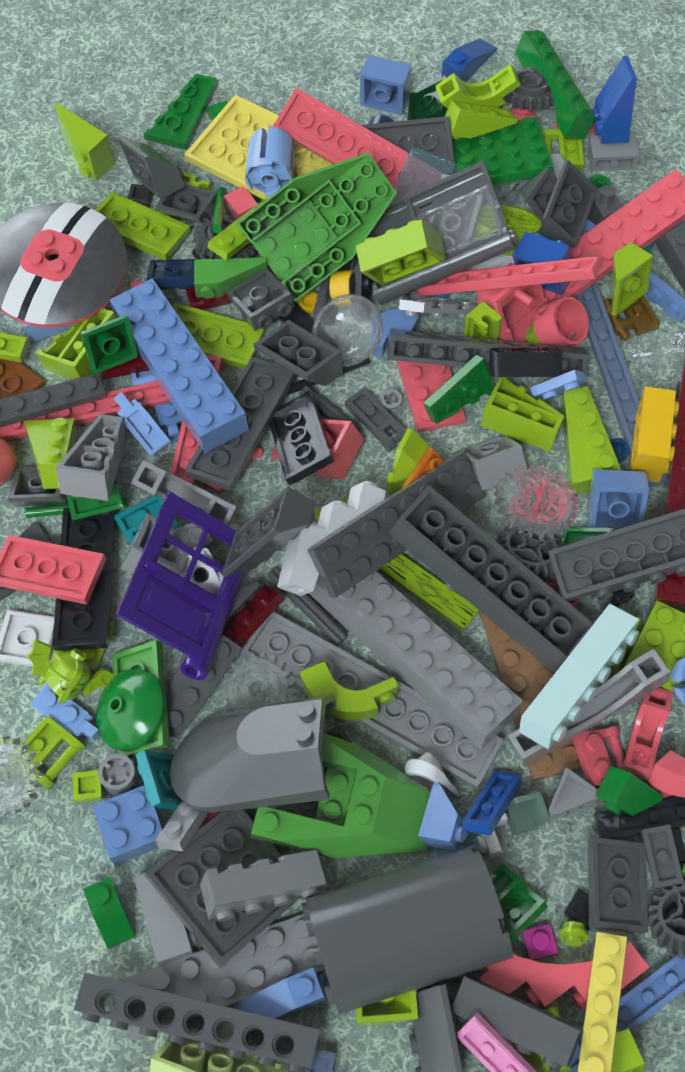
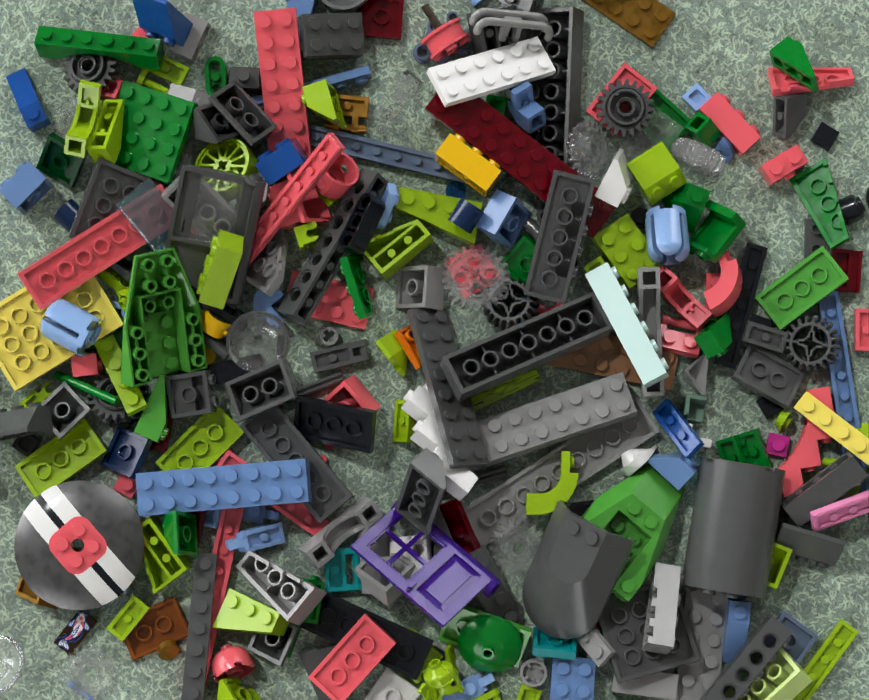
camera: 65 degrees left, 20 degrees up
(597, 452) = (465, 215): none -> dark blue piece

